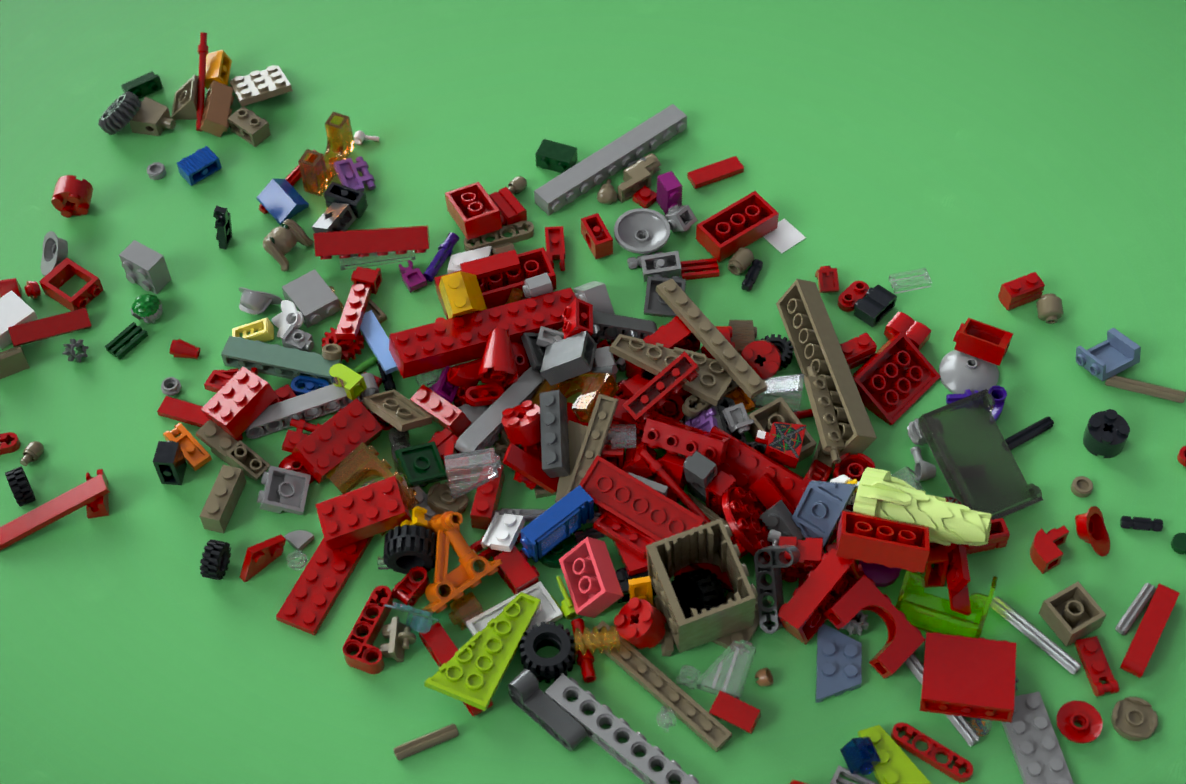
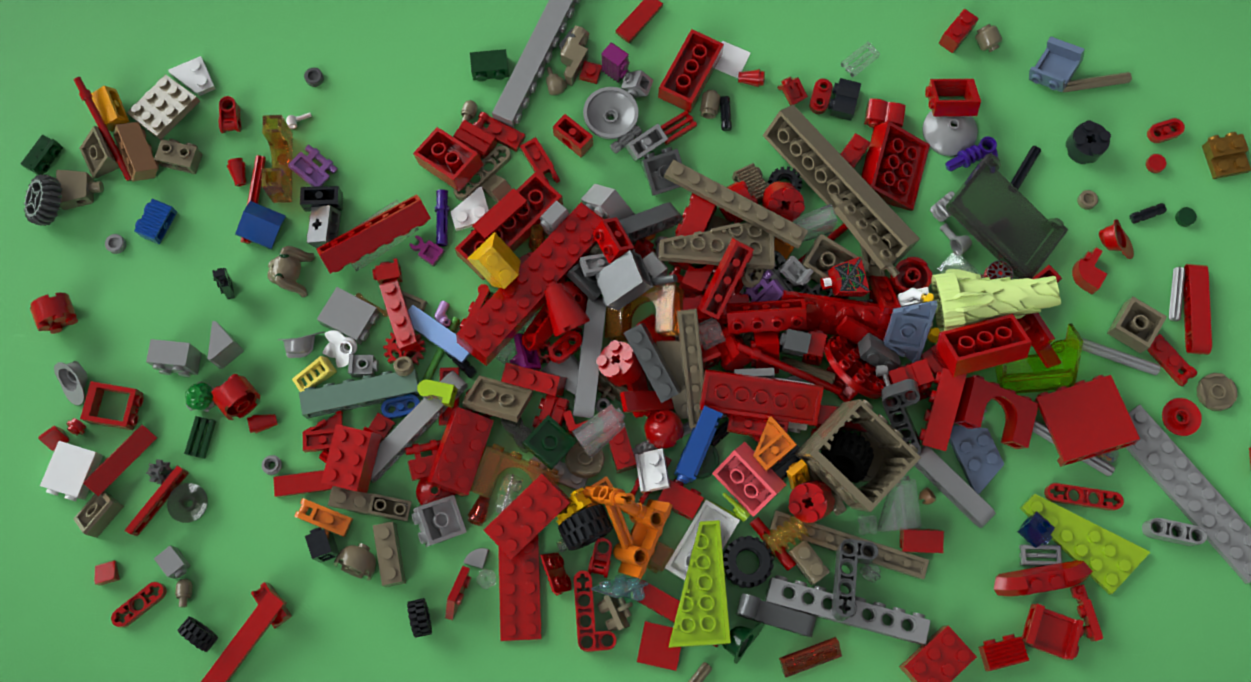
camera: 30 degrees left, 20 degrees up
(38, 424) = (172, 562): none -> light grey brick
(58, 372) = (156, 501): none -> red tile
(77, 379) = (178, 502): none -> clear smoke dish
(175, 318) = (235, 397): none -> red brick
(188, 276) = (222, 346): none -> light grey slope
(191, 489) = (357, 561): none -> dark tan cylinder
(290, 154) = (237, 171): none -> red cone
(301, 76) = (194, 76): none -> white wing
(310, 112) = (229, 119): none -> red piece
(334, 492) = (479, 511): none -> clear red cone
(360, 578) = (554, 569): none -> red hinge
(396, 327) = (440, 314): none -> lavender arm
(399, 112) = (313, 77): none -> dark grey tile
(414, 695) = (655, 645): none -> red tile
(503, 719) = (741, 639): none -> dark green piece
(534, 499) = (663, 428): none -> red cylinder
(535, 212) = (504, 134): none -> red plate
(560, 767) = (810, 657): none -> clear red plate
(608, 679) = (808, 562): none -> dark tan brick
(627, 551) = (773, 445): none -> orange wing
(635, 706) = (849, 580): none -> dark grey beam
(794, 255) = (753, 77): none -> red cone
(795, 680) = (954, 487): none -> light grey beam
(1174, 483) = (1156, 163): none -> red tile

